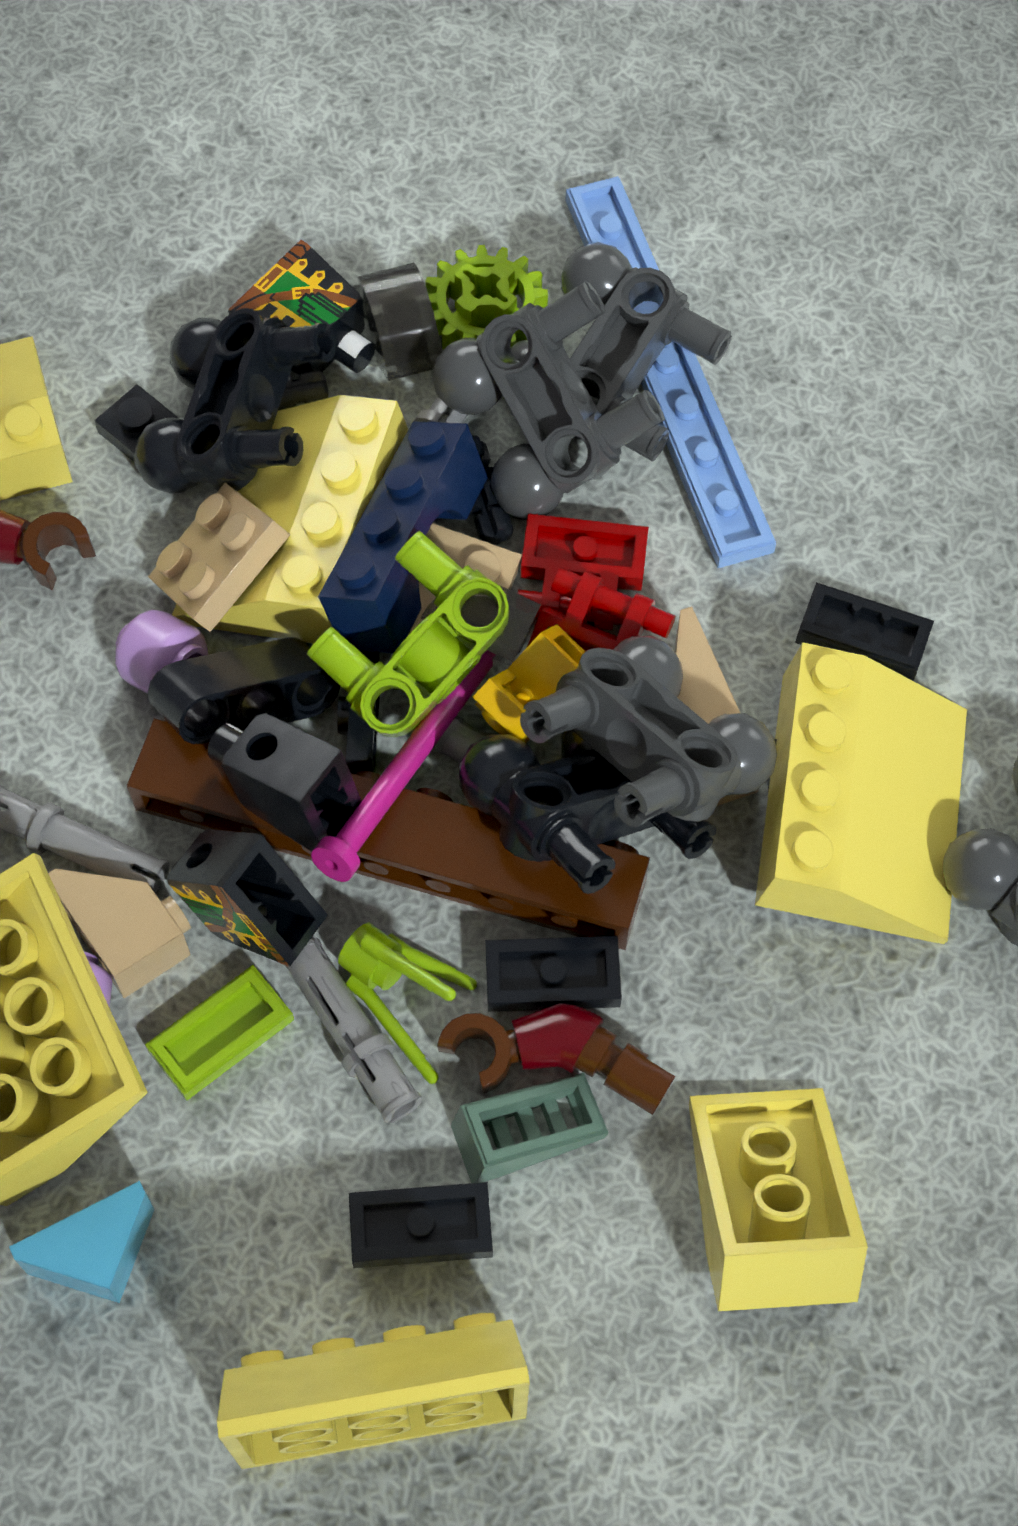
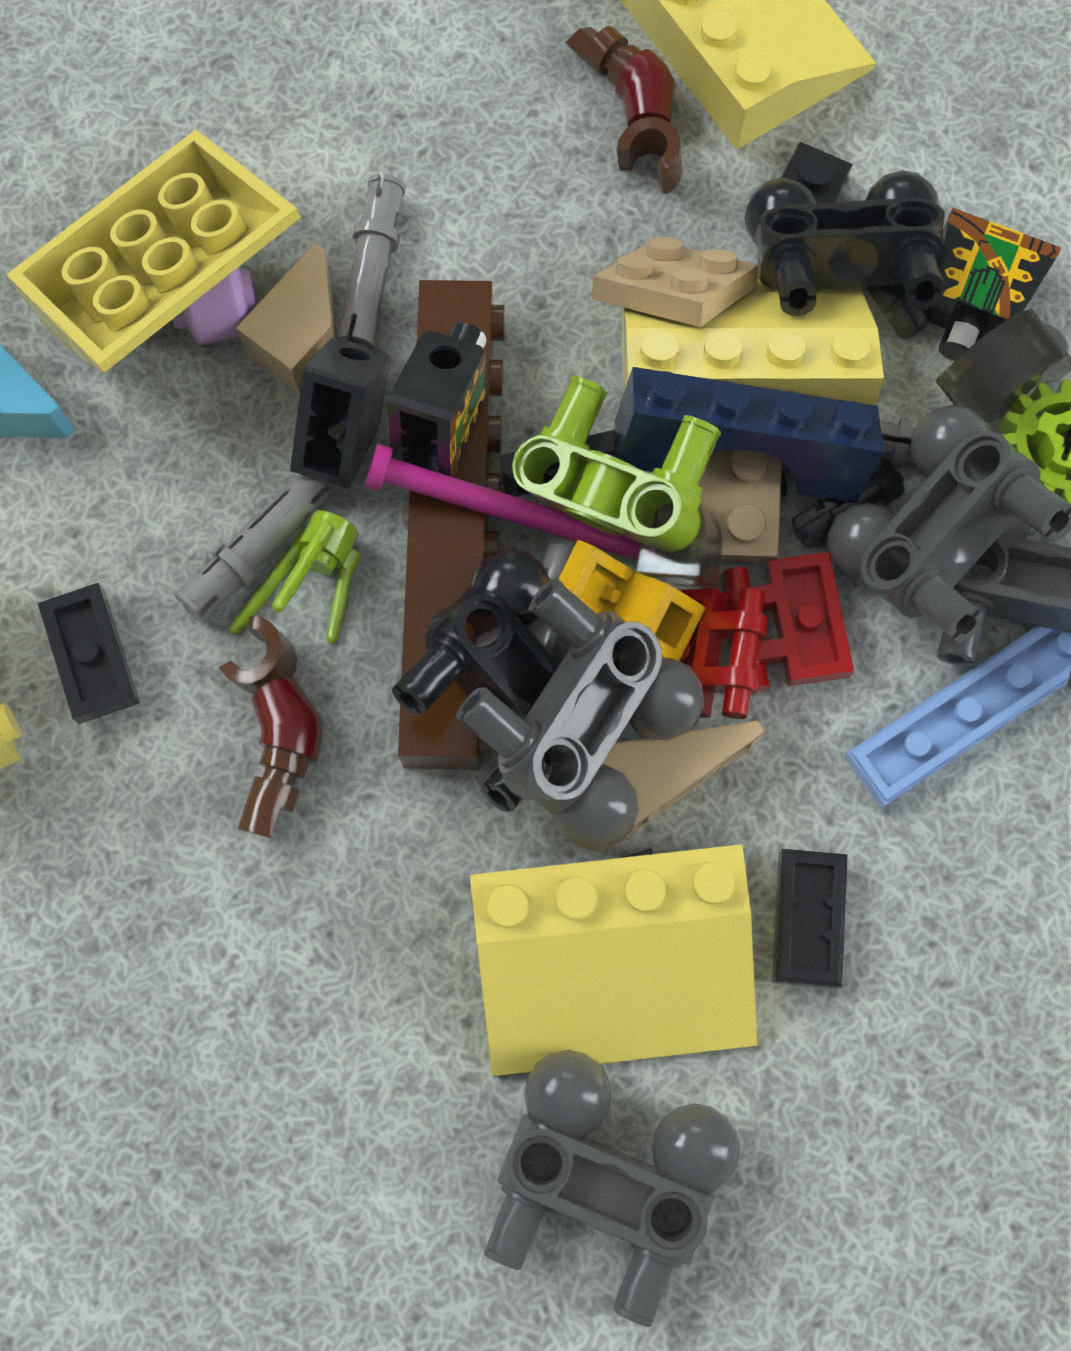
camera: 75 degrees right, 10 degrees up
(153, 642) = (564, 273): lavender head -> none
(219, 1032) = (230, 438): lime tile -> none
(239, 685) = (538, 336): black beam -> none
(488, 1164) = (174, 681): sand green slope -> none
(552, 972) = (352, 704): black plate -> none
(775, 1201) = (181, 957): light yellow slope -> none

